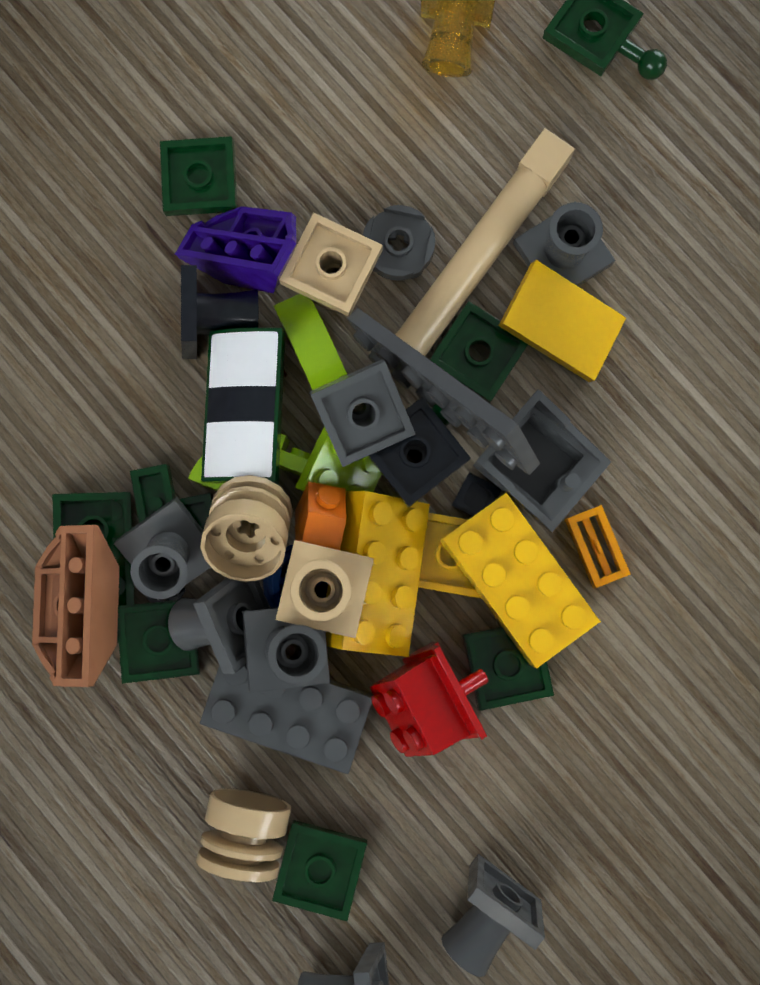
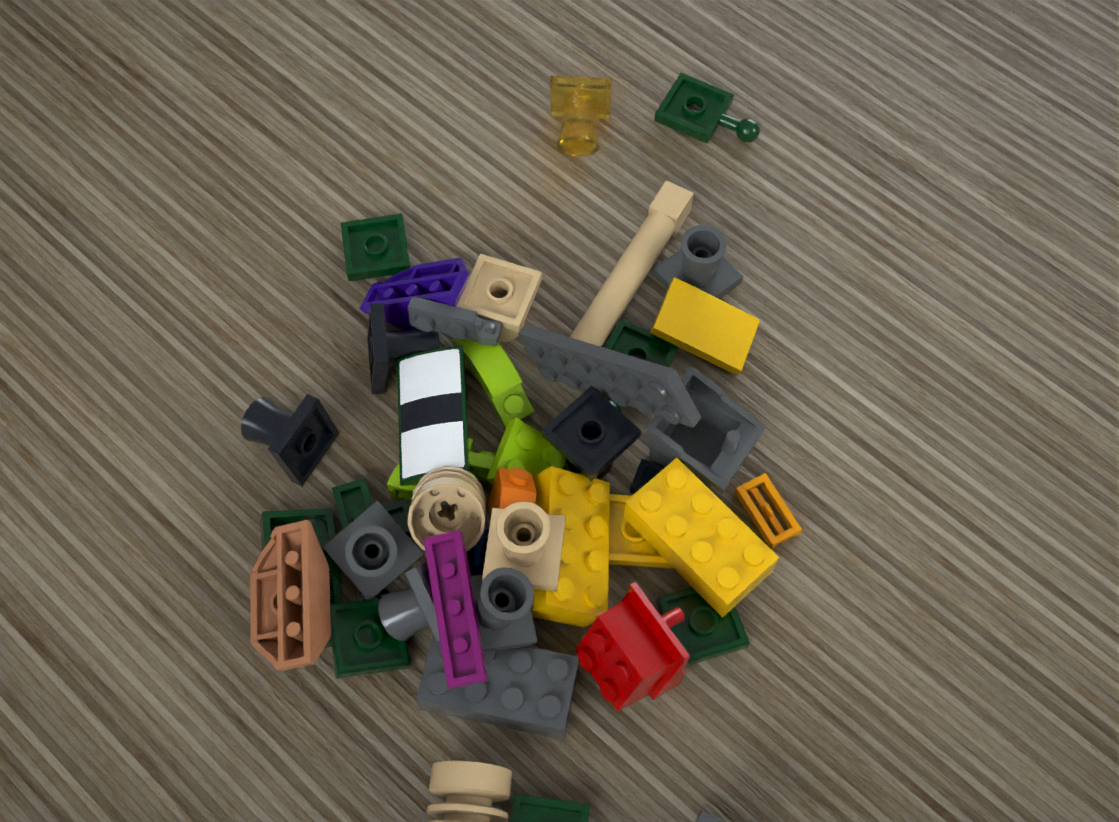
camera: 10 degrees left, 20 degrees down
(93, 411) = (294, 439): none -> black plant
(243, 651) = (455, 610): none -> magenta plate
(276, 297) = (453, 321): none -> dark grey hinge
(373, 428) = (557, 394): dark grey plant -> none
(417, 233) = (573, 279): dark grey plate -> none

